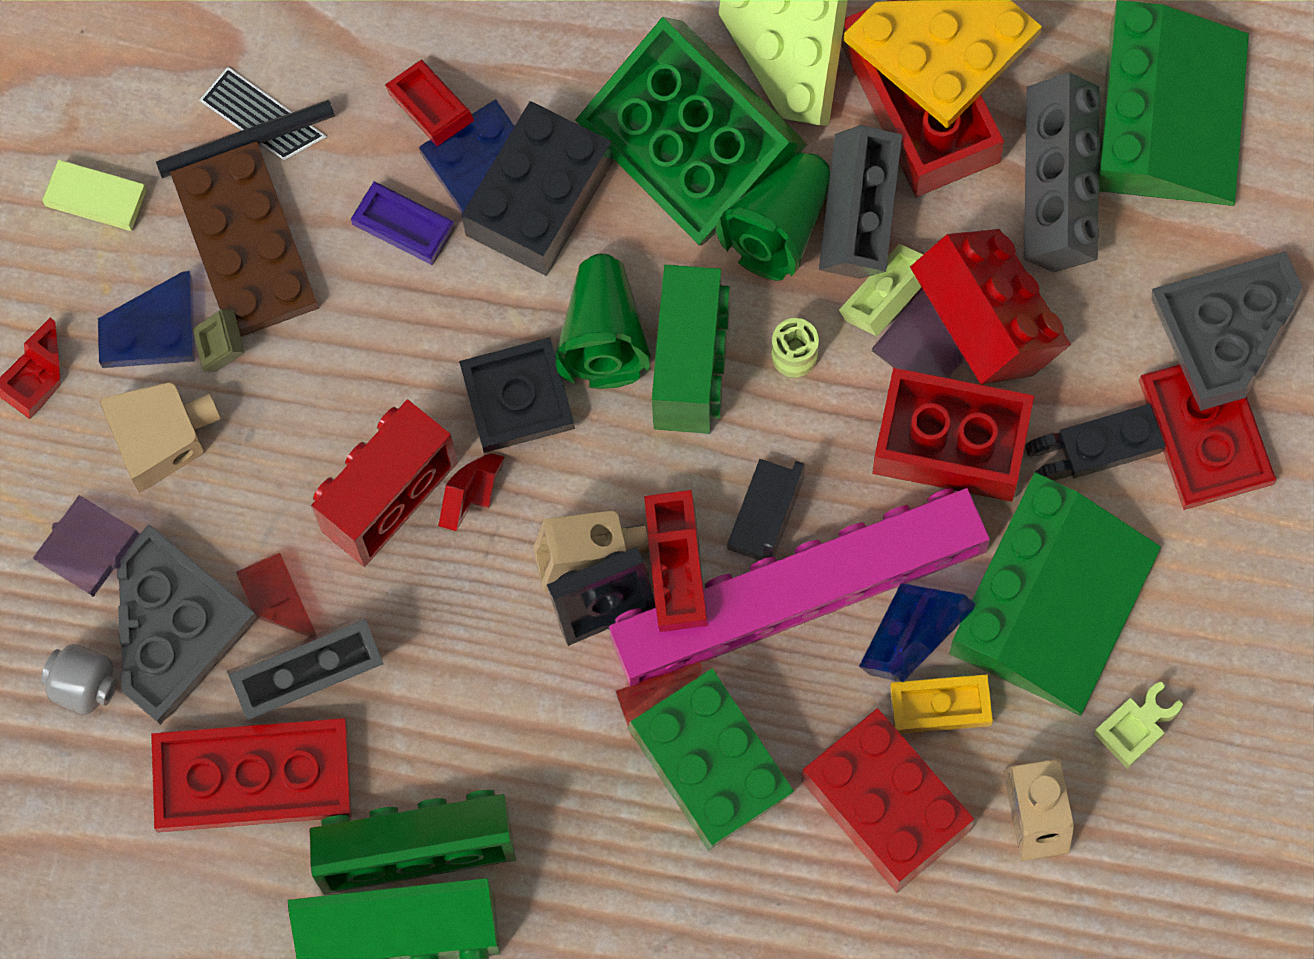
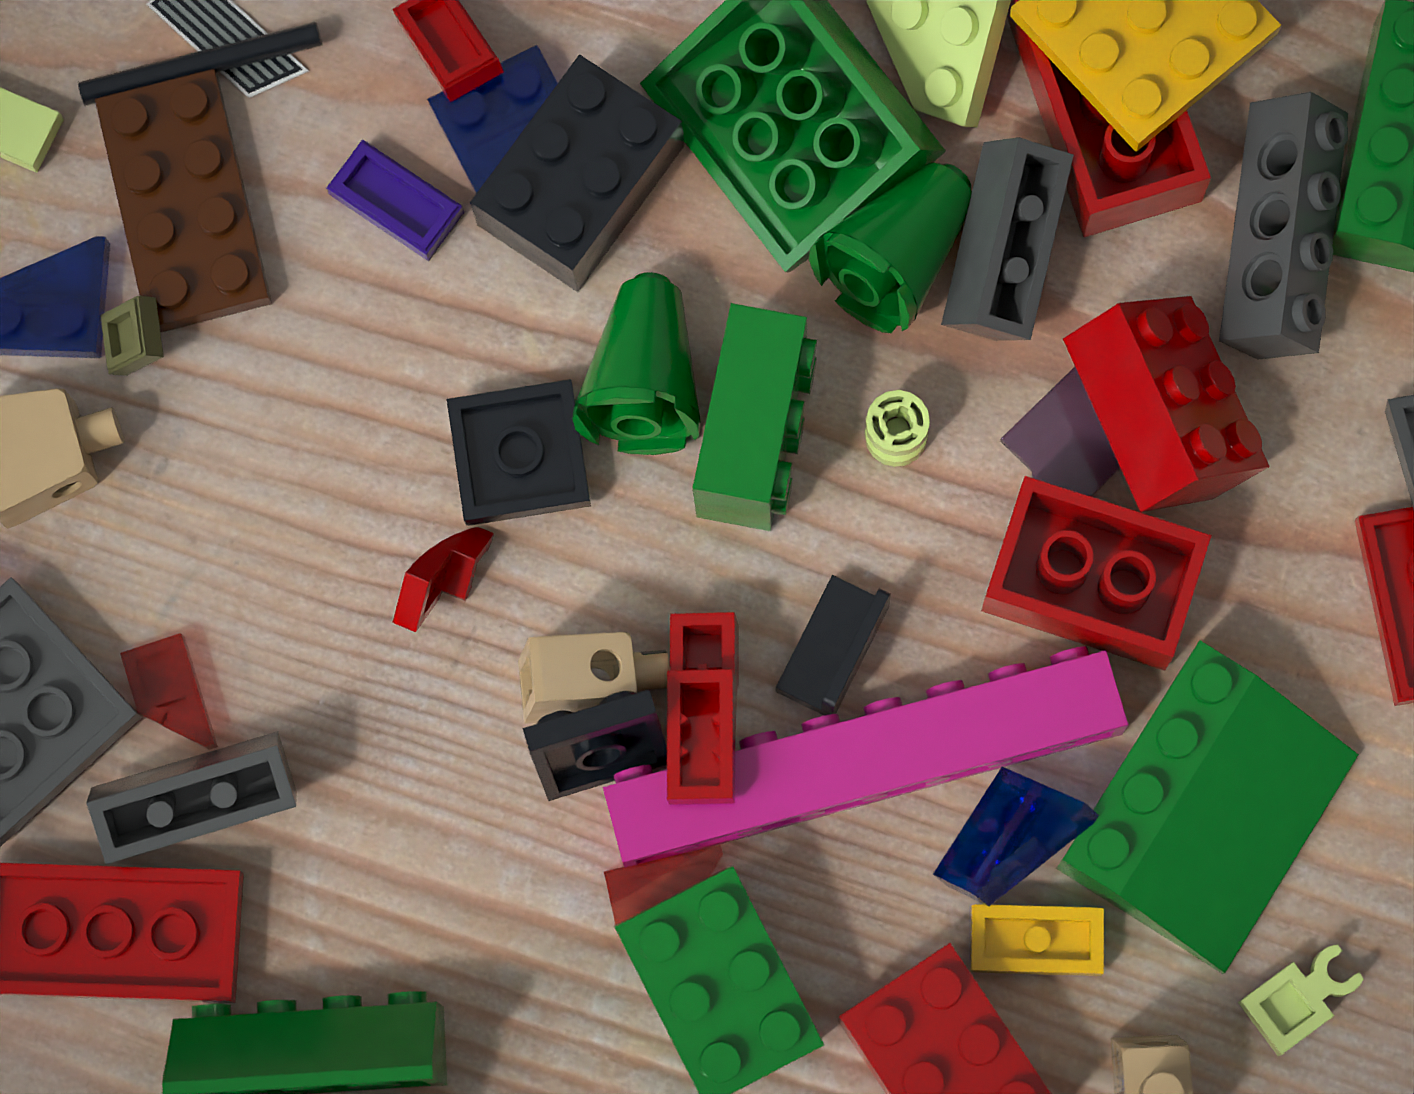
camera: 10 degrees right, 5 degrees up
(384, 481) = (326, 555): red brick -> none
(883, 294) = (1025, 368): yellowish green plate -> none
(1100, 443) = (1293, 604): black hinge -> none

